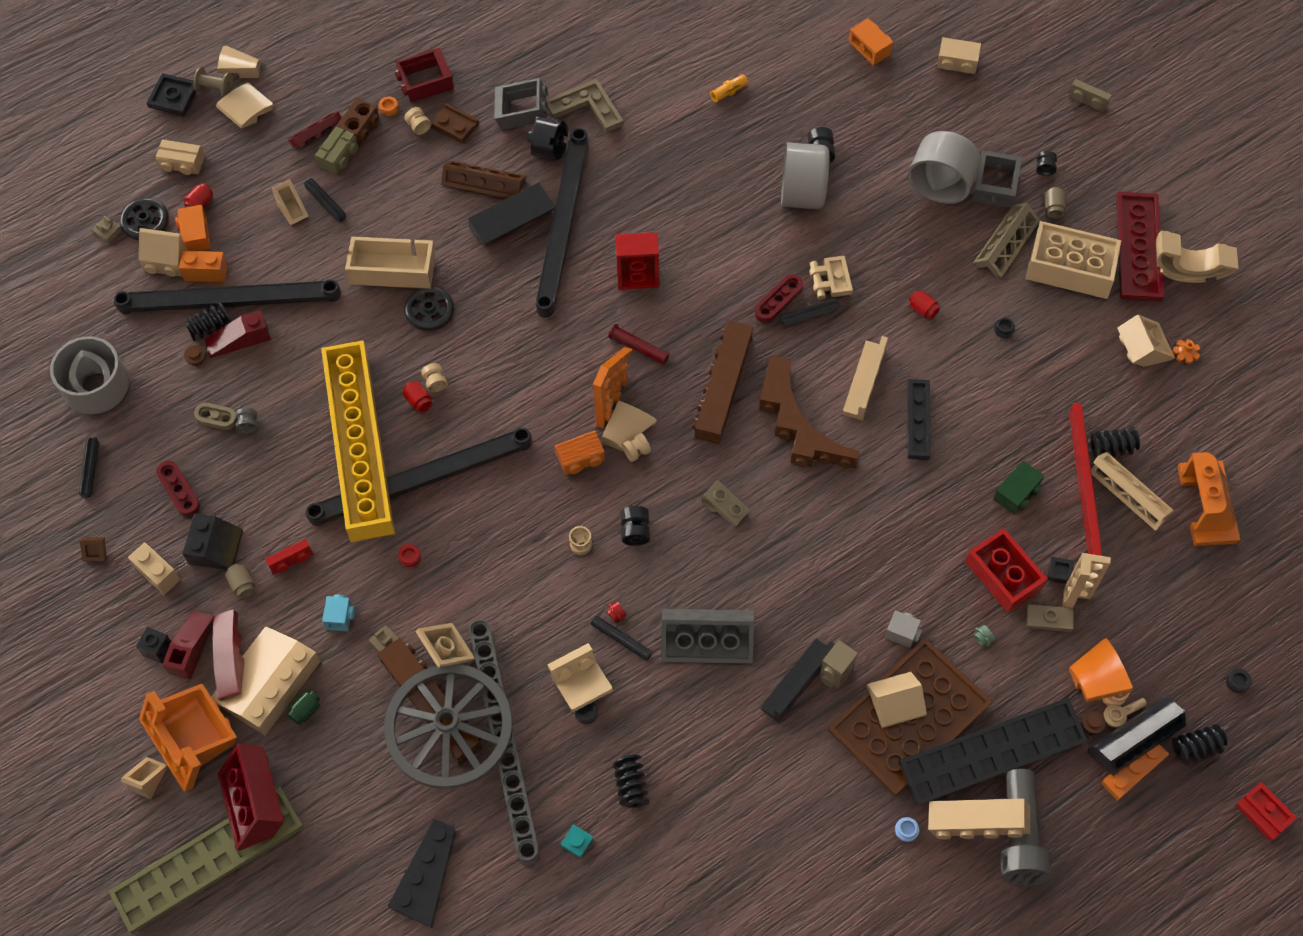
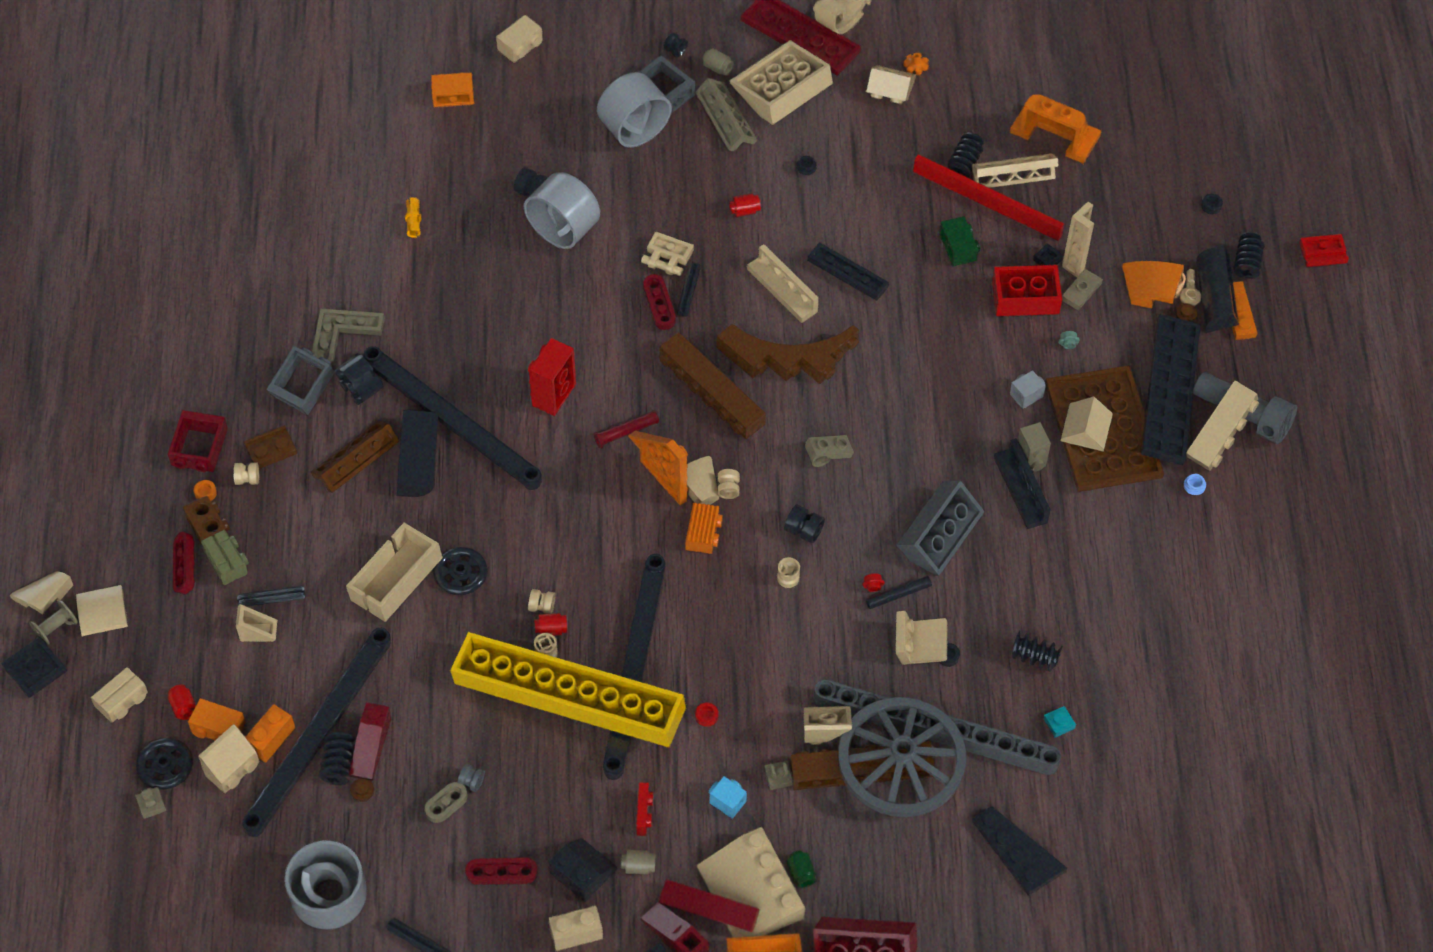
camera: 60 degrees left, 5 degrees down
(393, 404) = (550, 644): none -> tan wheel

